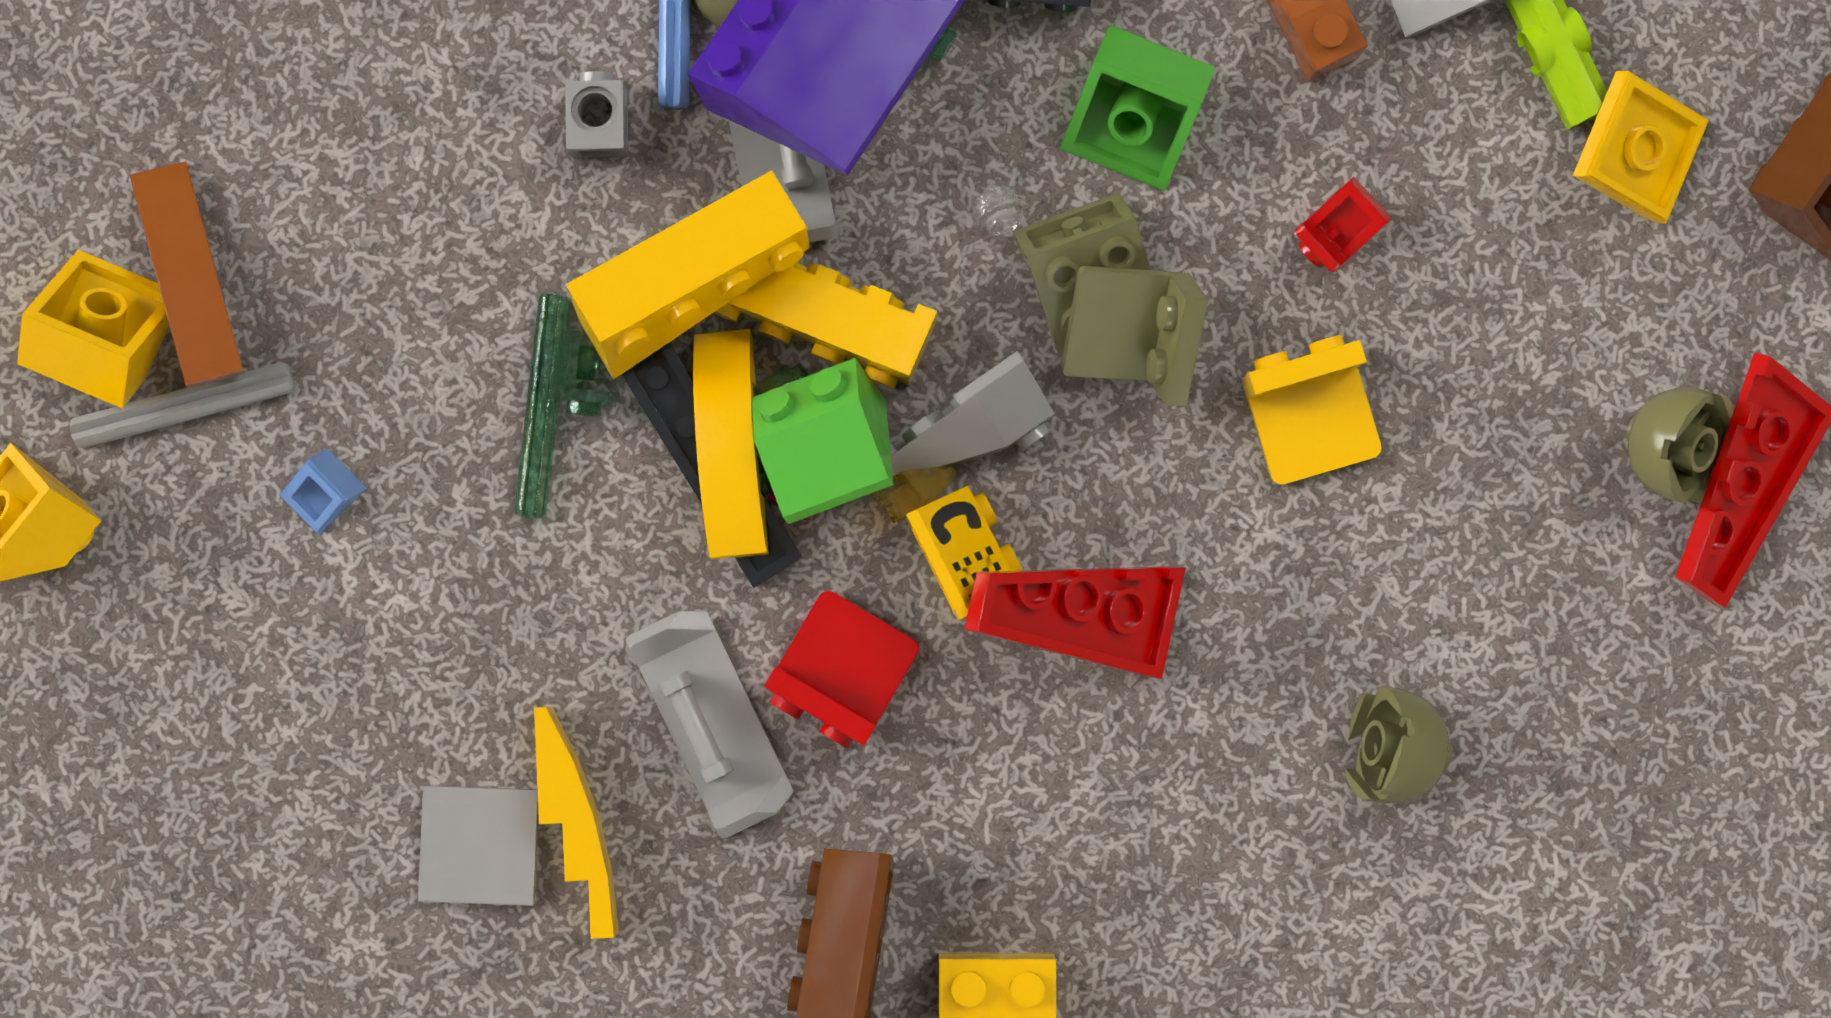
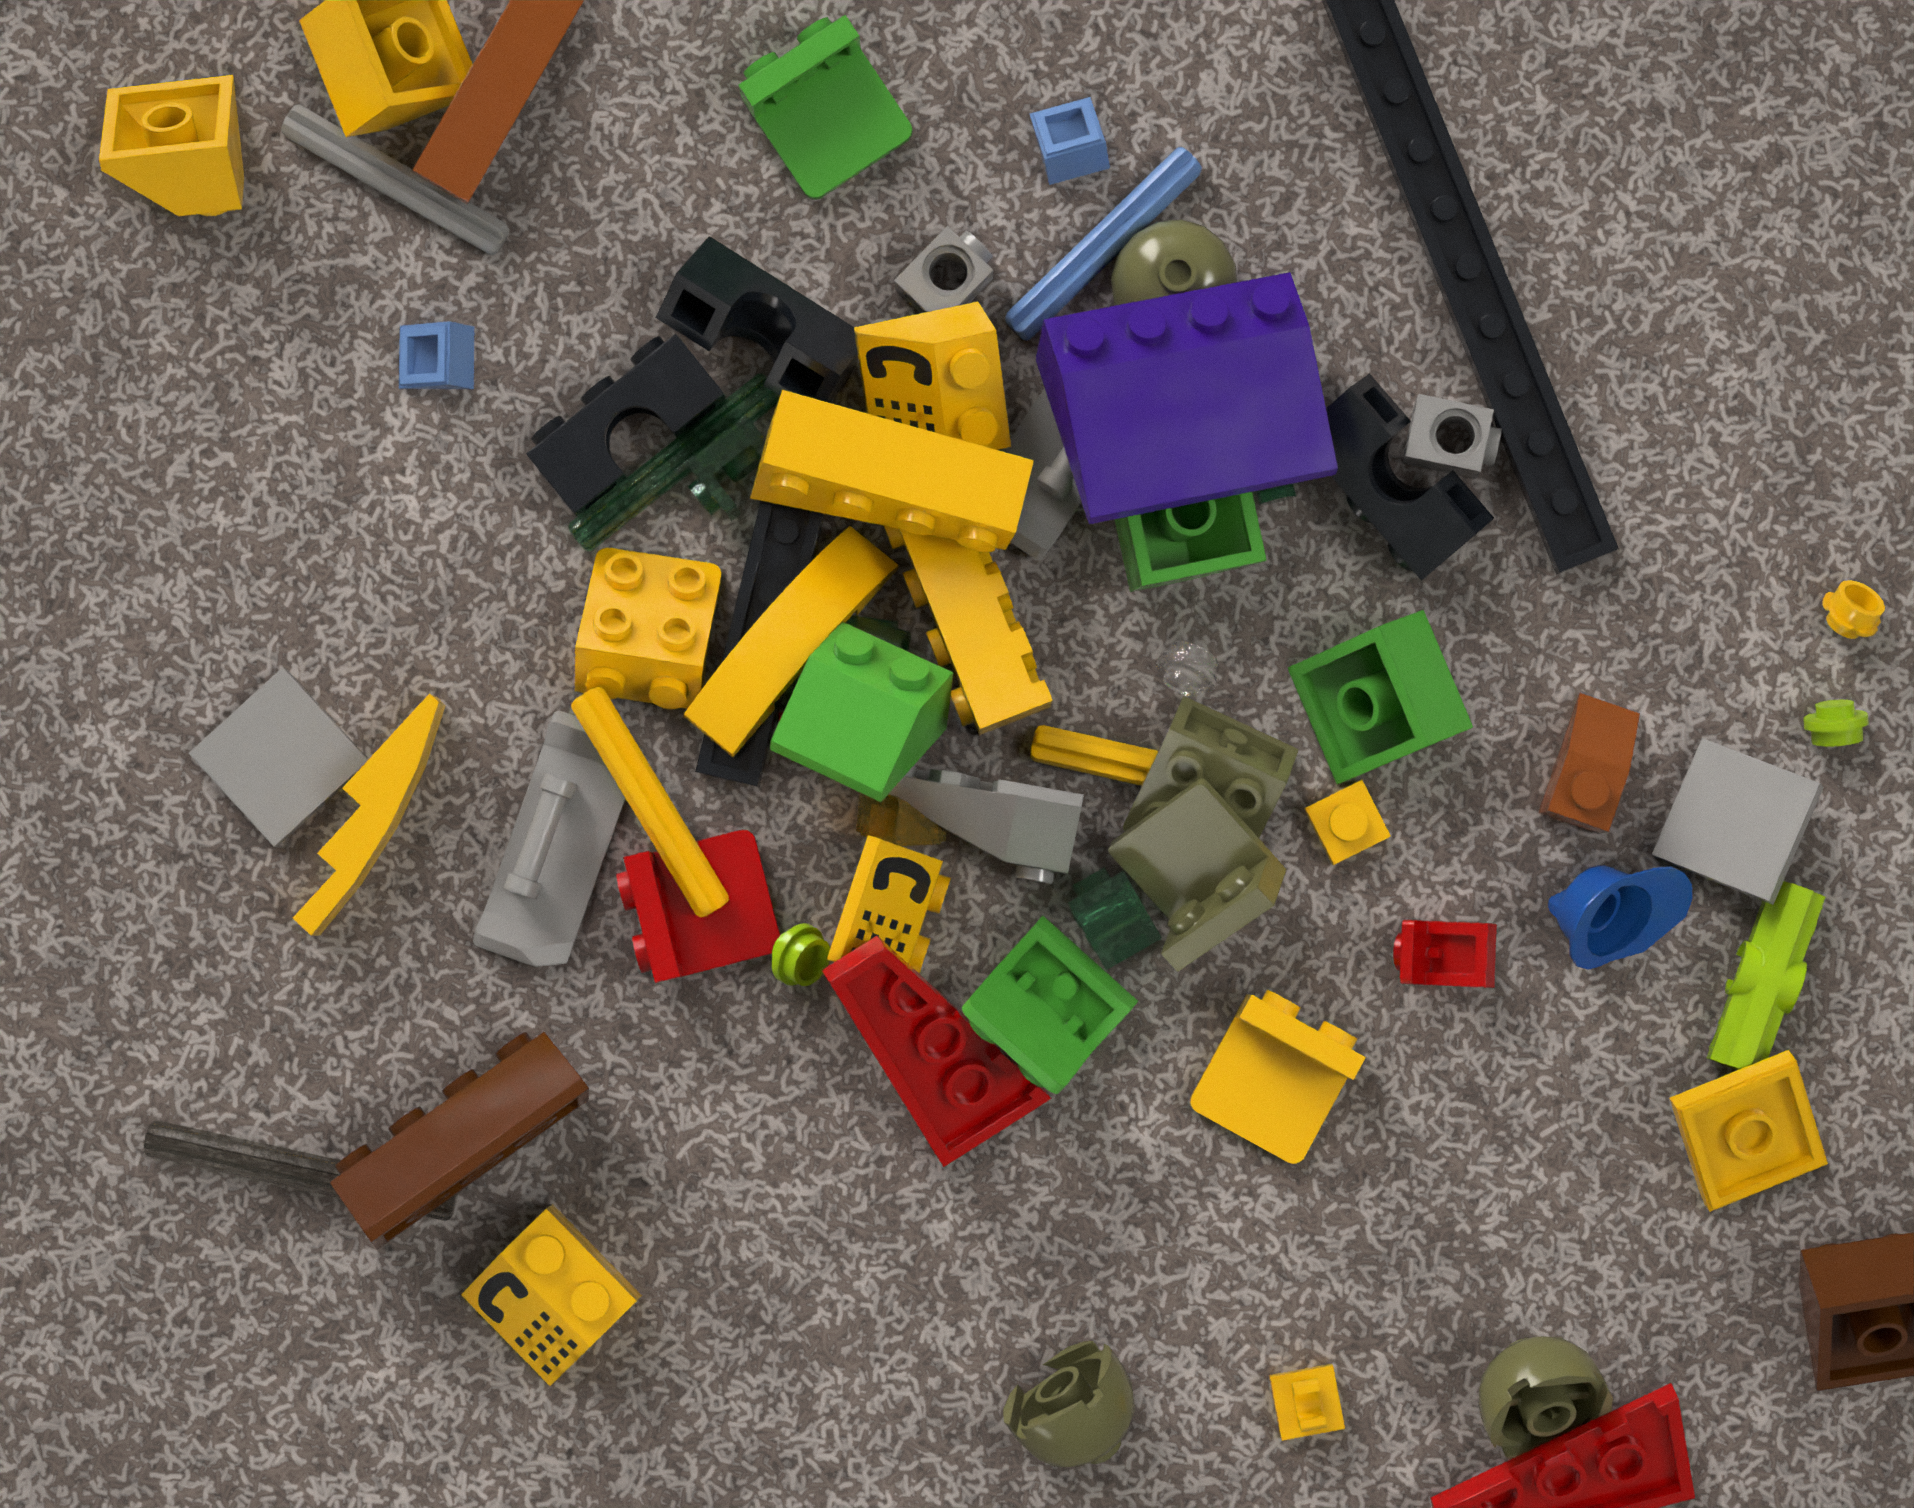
camera: 50 degrees right, 0 degrees up
(410, 86) = (824, 107): none -> bright green bracket
(471, 264) = (729, 296): none -> black arch
(484, 362) = (662, 383): none -> black arch
(630, 528) = (646, 627): none -> yellow bracket
(652, 179) = (937, 374): none -> yellow slope
(744, 635) = (649, 801): none -> yellow axle
(919, 127) = (1190, 541): none -> bright green slope
(937, 637) = (800, 955): none -> lime plate
(992, 326) = (1091, 755): none -> yellow axle
(1109, 414) = (1112, 917): none -> clear green brick
(1126, 510) = (1047, 1006): none -> bright green bracket
(1195, 207) = (1347, 822): none -> yellow plate
(1422, 93) = (1619, 913): none -> blue piece
(1536, 596) = (1306, 1402): none -> yellow tile

